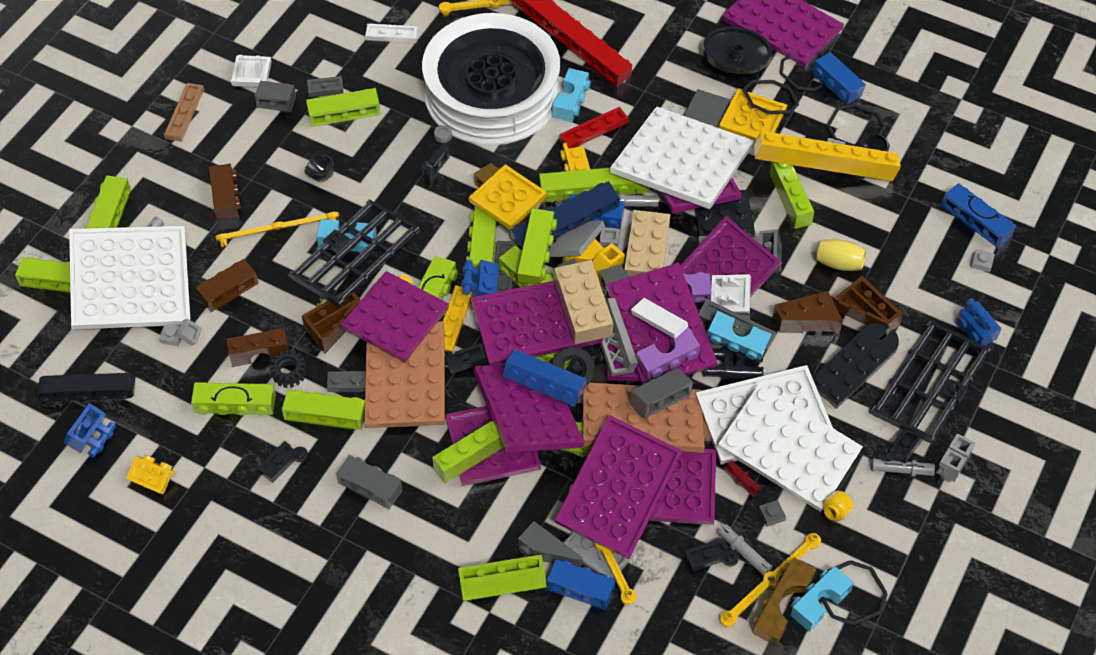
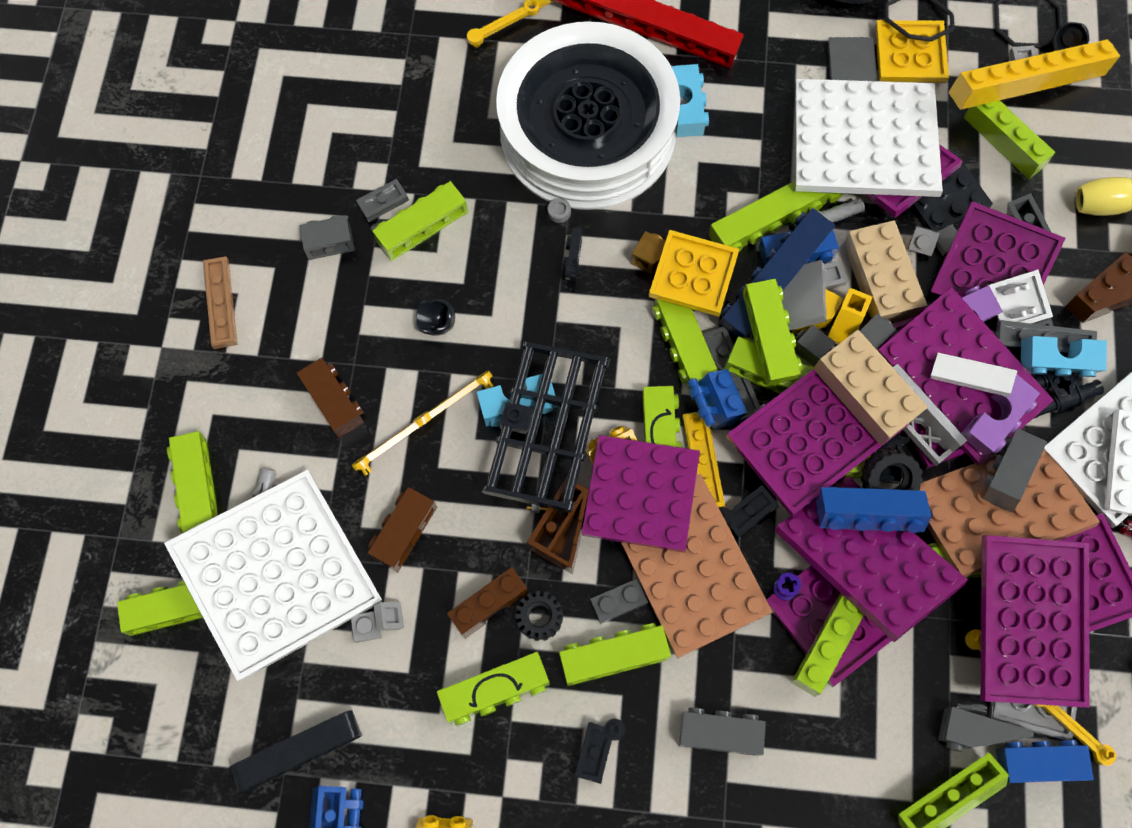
camera: 20 degrees left, 15 degrees up
(250, 70) = (277, 213): white plate -> none
(391, 33) = (425, 95): white tile -> none
(462, 407) = (789, 579): none -> dark purple bush
(574, 158) = (736, 187): yellow bracket -> none
(594, 128) = (736, 135): red plate -> none
(689, 238) = (923, 240): none -> light grey plate

